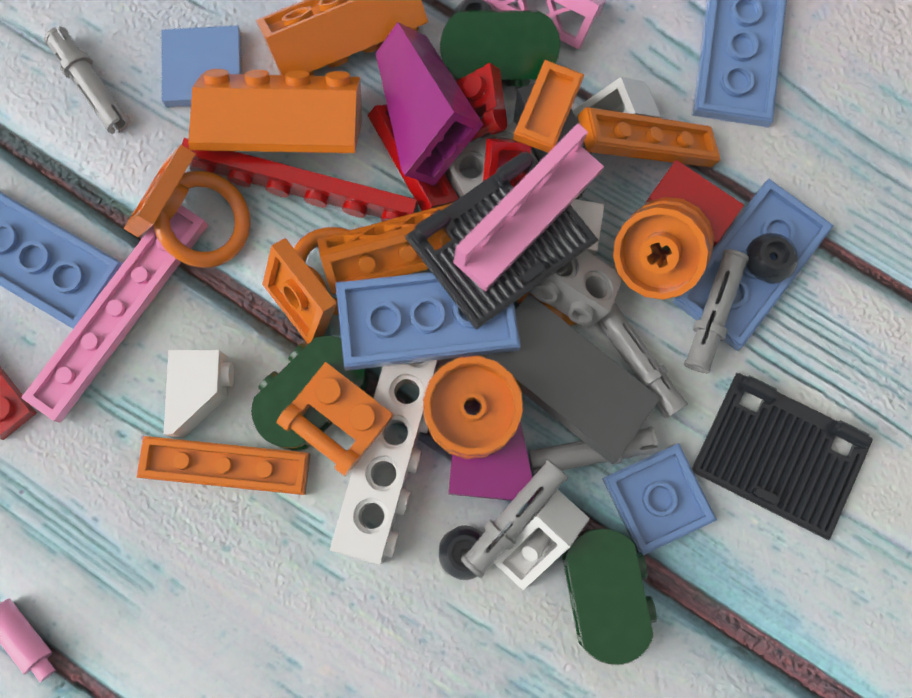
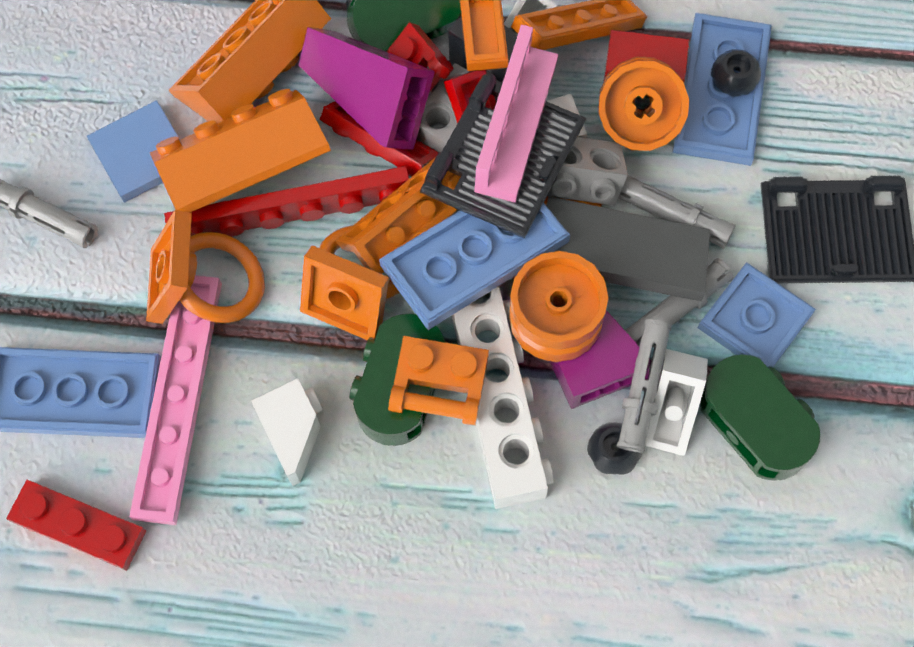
camera: 25 degrees left, 10 degrees down
(224, 465) = (352, 485): orange tile -> none
(716, 311) = (723, 177): light grey pin -> none

